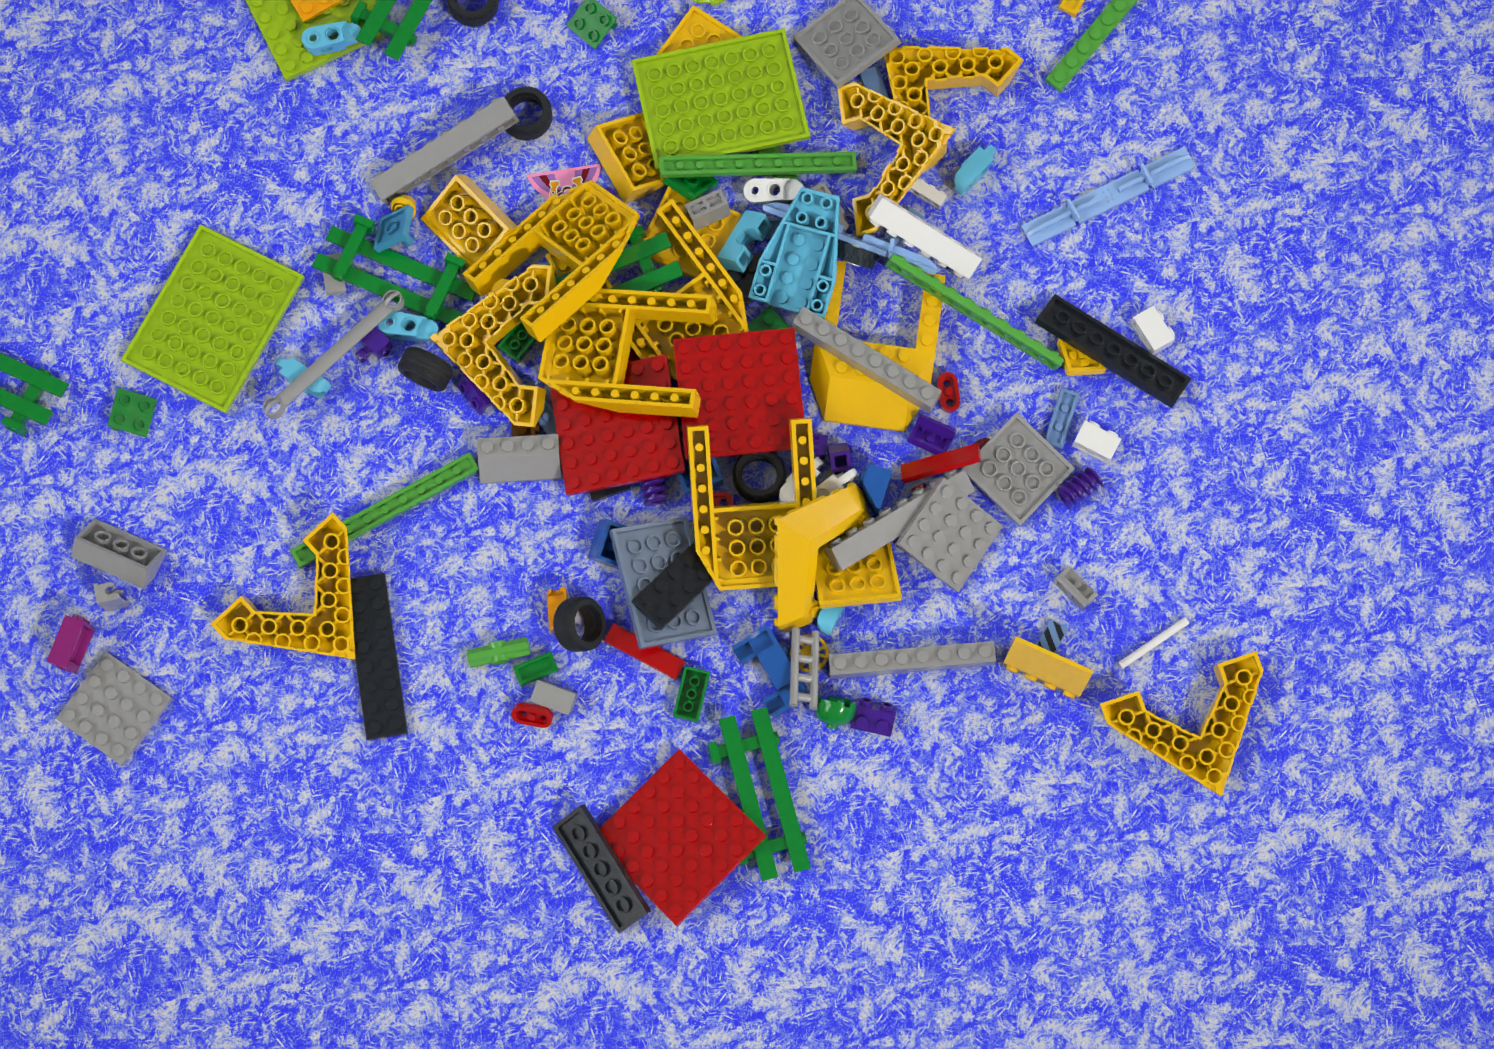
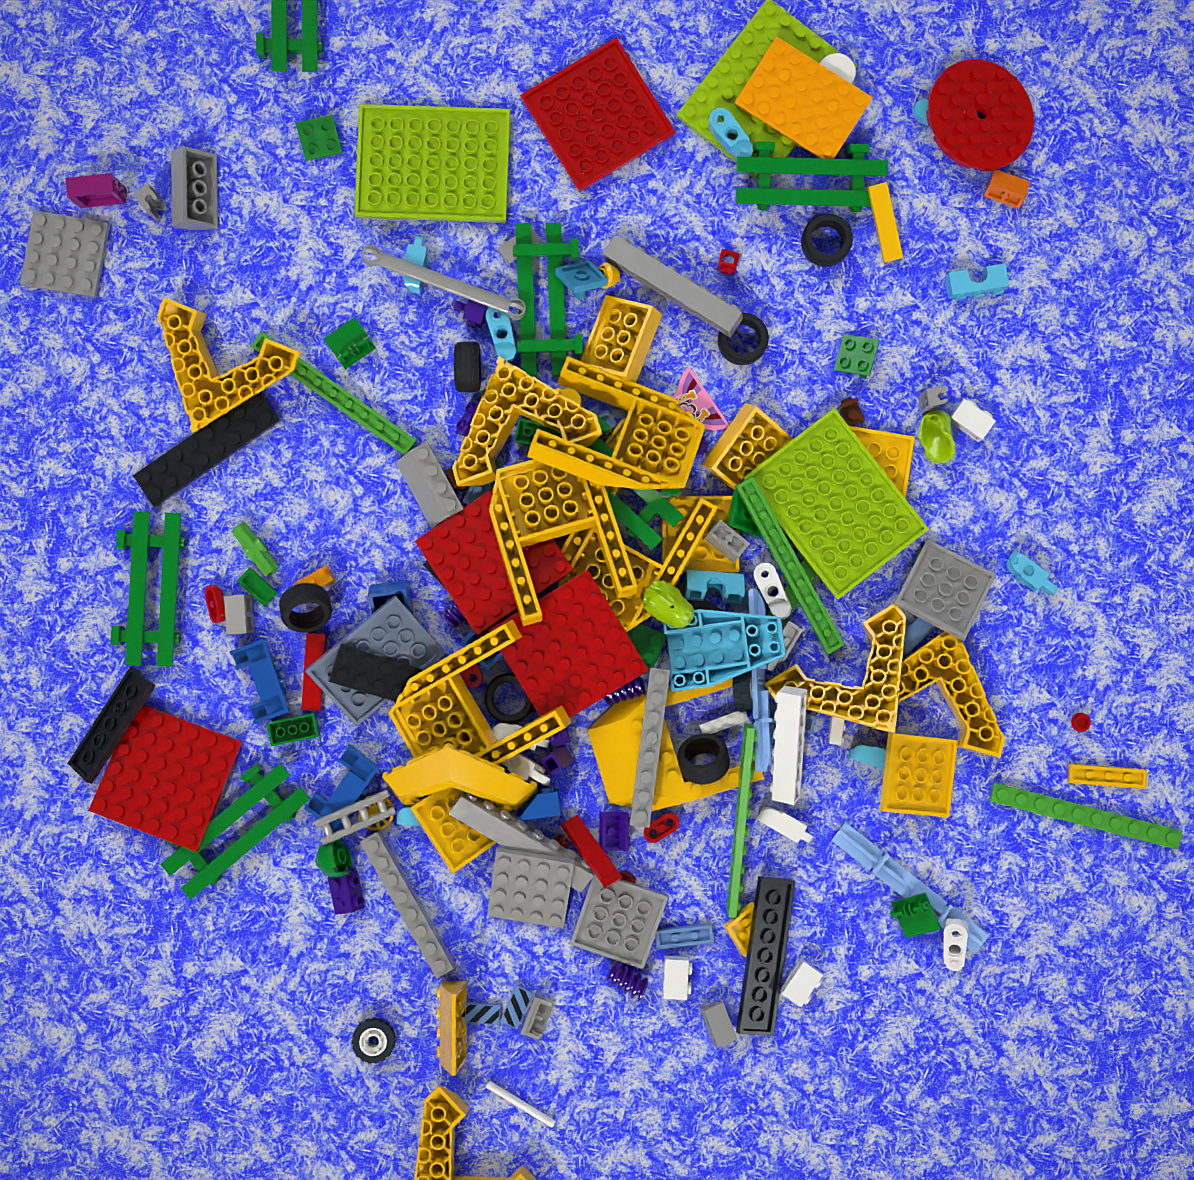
camera: 65 degrees right, 10 degrees up
(247, 149) = (597, 114): none -> red plate
(344, 473) = (349, 343): none -> green hinge
(437, 758) = (135, 633): none -> green fence
(450, 99) = (727, 268): none -> red bracket
(629, 696) = (267, 680): none -> blue bracket
(641, 49) = (851, 411): none -> reddish brown bracket
(735, 287) = (661, 599): none -> lime piece
(803, 354) = (633, 688): none -> dark purple piece
(876, 292) = (723, 722): none -> white piece
(889, 315) = (699, 745): none -> black tyre
(997, 279) = (784, 824): none -> white piece
(1006, 138) = (918, 775): none -> yellow plate
(1029, 766) = (367, 1051): none -> black wheel
(1058, 604) = (516, 1006): none -> medium blue tile
(1135, 201) = (915, 915): none -> green hinge
(1157, 423) = (718, 1023): none -> light grey hinge
(1190, 183) = (955, 955): none -> white piece

